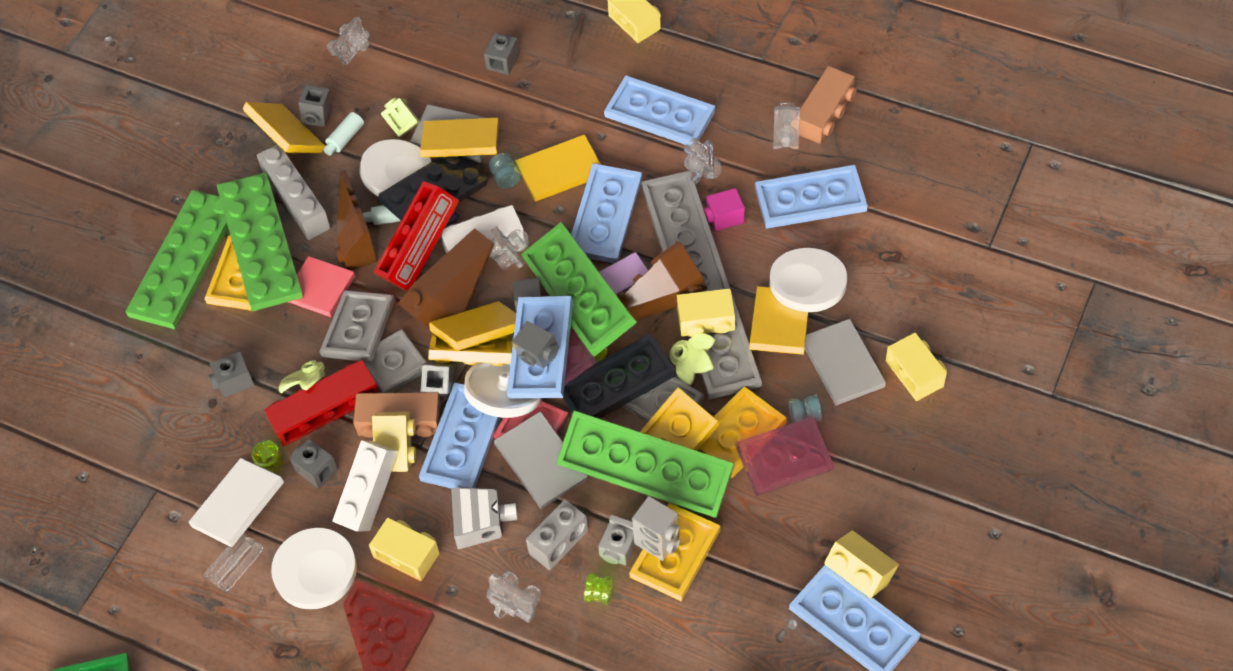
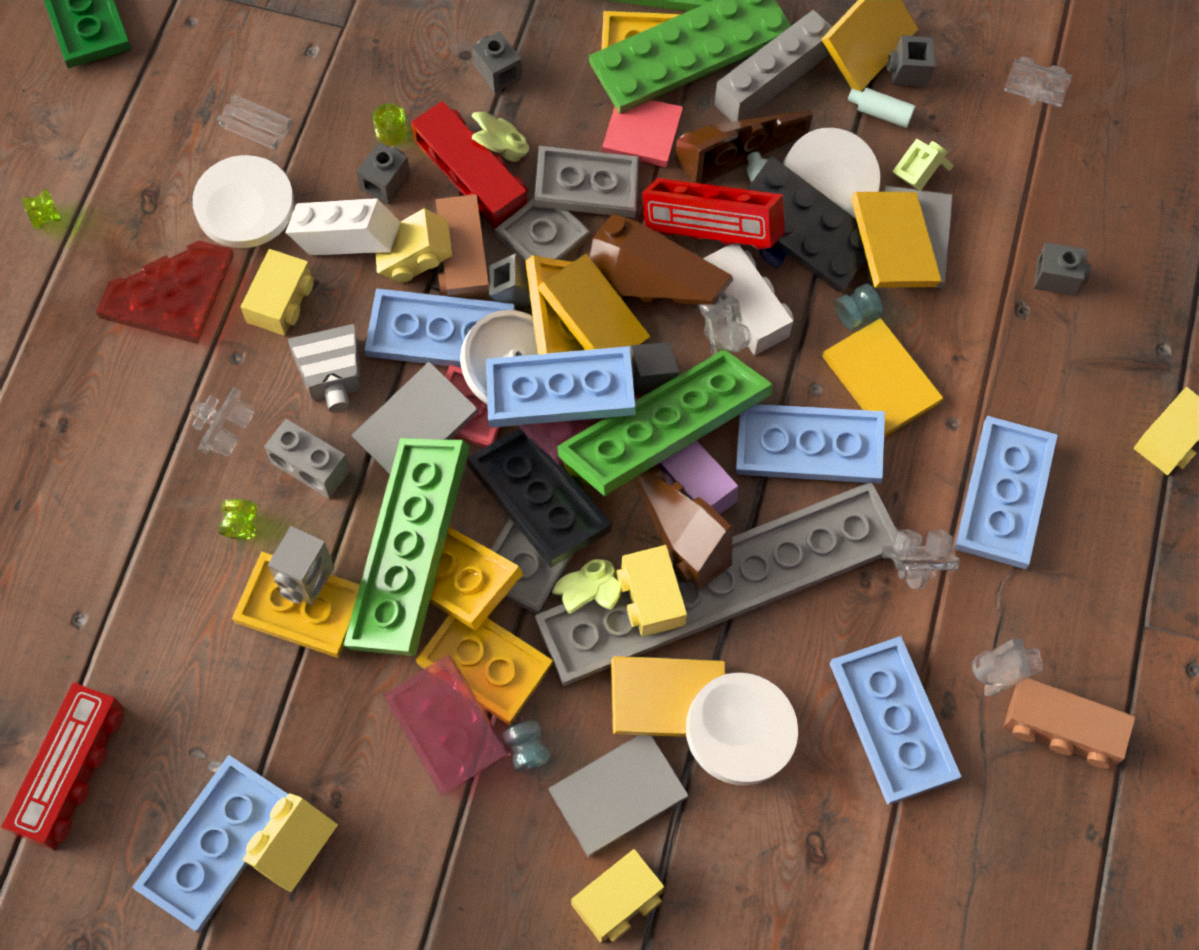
camera: 75 degrees right, 10 degrees up
(236, 502) = (325, 105): white tile -> none
(535, 345) = (545, 374): dark grey brick -> none
(617, 551) = (319, 525): light grey brick -> none
(724, 209) = (845, 600): dark pink brick -> none

